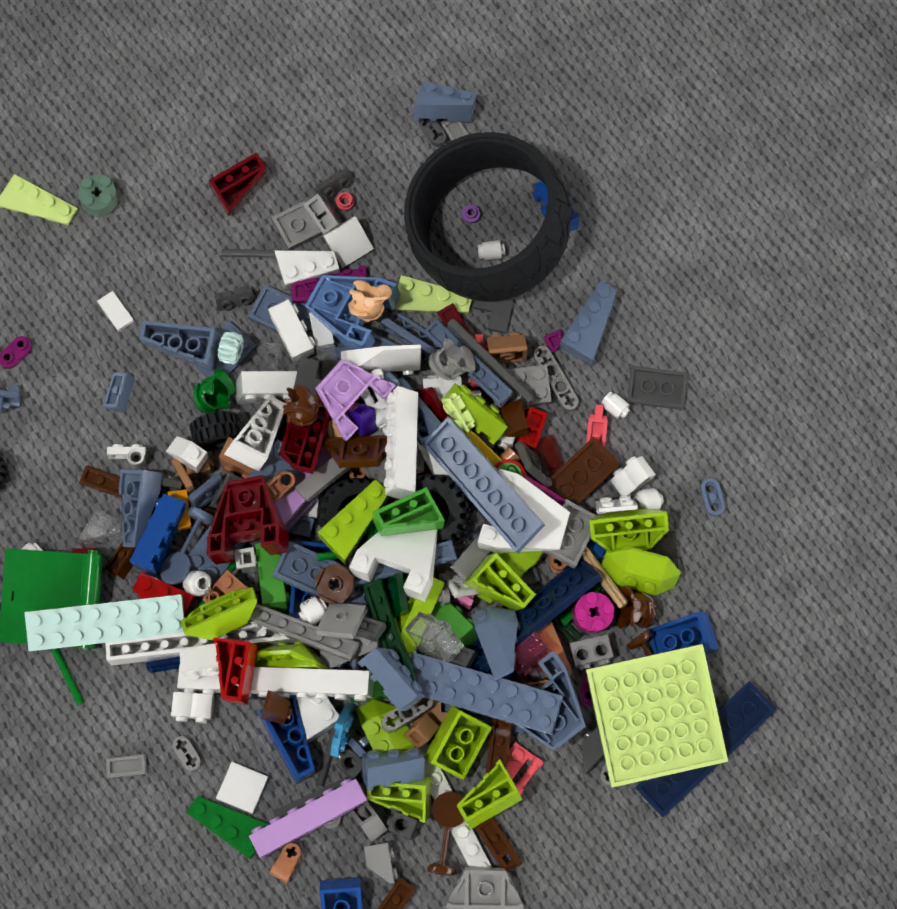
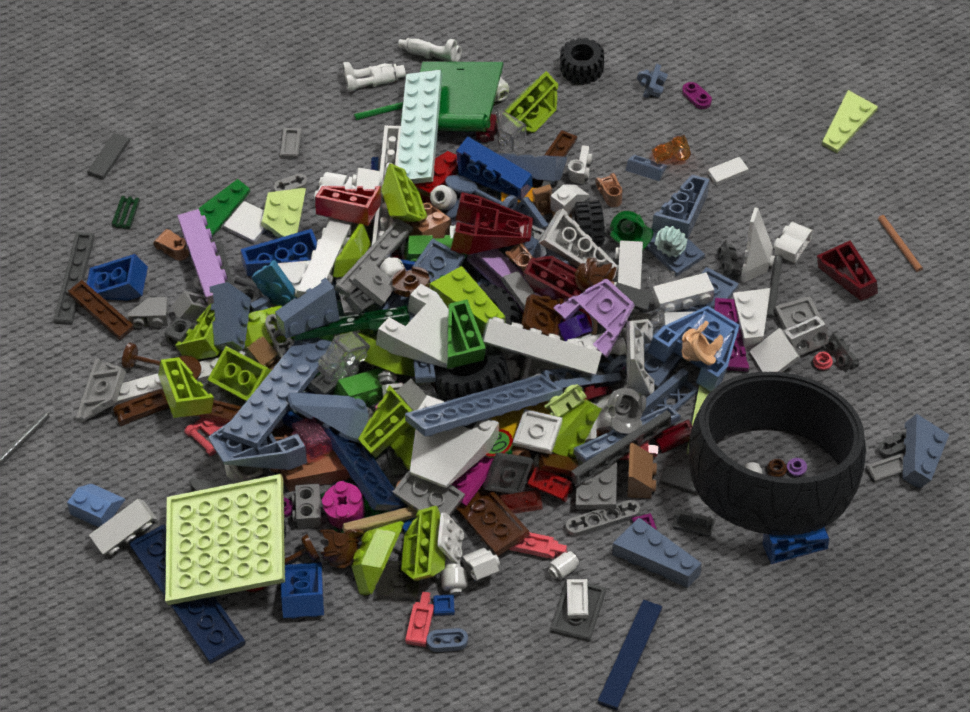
camera: 100 degrees right, 20 degrees down
(19, 685) = (378, 75): none -> white piece
(50, 516) = (535, 102): none -> lime wedge
(97, 365) = (665, 151): none -> clear orange plate
(101, 186) = (847, 163): sand green brick -> none
(154, 421) = (610, 190): none -> nougat piece
(190, 142) = (899, 242): none -> nougat bar
(205, 239) = (792, 242): none -> white brick
(229, 751) = (283, 211): none -> yellowish green wing
(232, 269) = (758, 249): none -> white wedge
(276, 708) = (306, 231): reddish brown slope -> none
(477, 226) = (779, 464): none -> reddish brown plate
(493, 436) = (537, 431): none -> white plate
(546, 297) = (693, 522): none -> dark grey hinge
(621, 861) = (94, 504): none -> medium blue slope
(649, 822) = (123, 527): none -> white wedge
(650, 387) = (577, 598): none -> white tile
(674, 508) = (443, 605): none -> blue tile
(695, 336) = (630, 655): none -> dark blue tile
(697, 524) = (420, 621): none -> coral hinge

